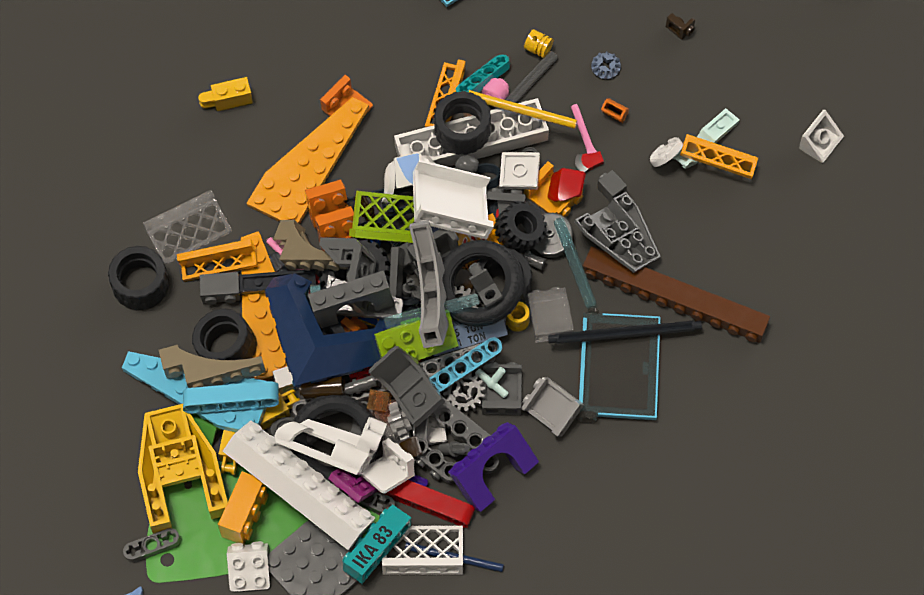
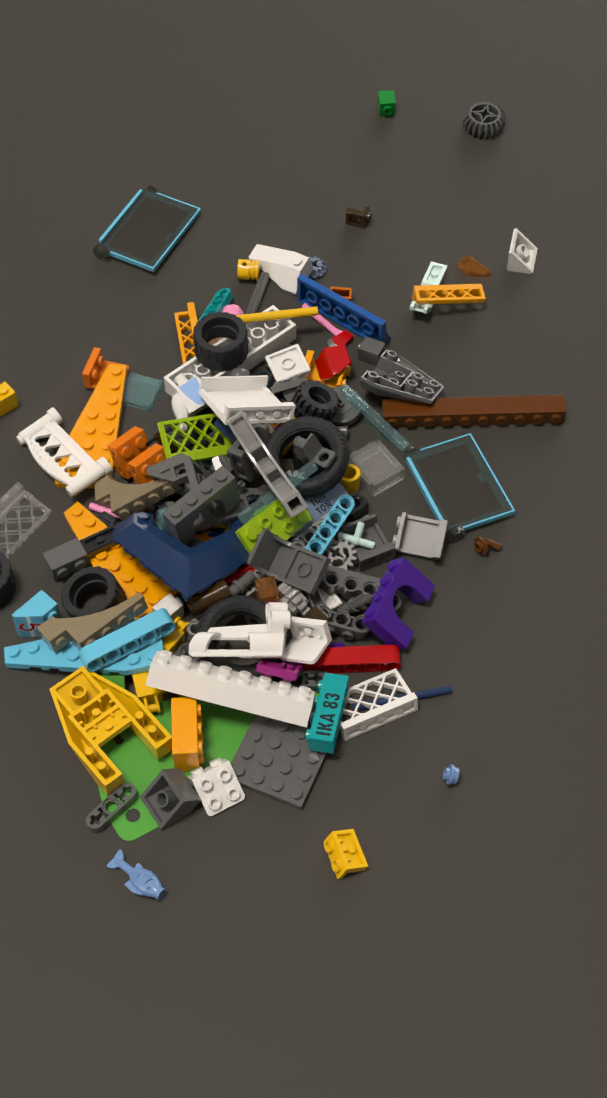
camera: 25 degrees left, 10 degrees down
(167, 334) = (34, 613): none -> medium azure slope
(204, 559) = (170, 797): none -> dark grey slope
(218, 253) = (61, 524): light orange fence -> none
(281, 206) = (49, 427): none -> white piece
(372, 136) = (141, 391): none -> clear light blue tile
(505, 355) = (361, 504): none -> black brick
(573, 55) = (282, 266): none -> white wedge
(604, 133) = (341, 310): none -> blue arch
(607, 439) = (481, 545): none -> reddish brown plate
(624, 332) = (447, 455): black piece -> none
(666, 152) = (405, 305): white tile -> none
(764, 131) = (472, 267): none -> clear orange tile

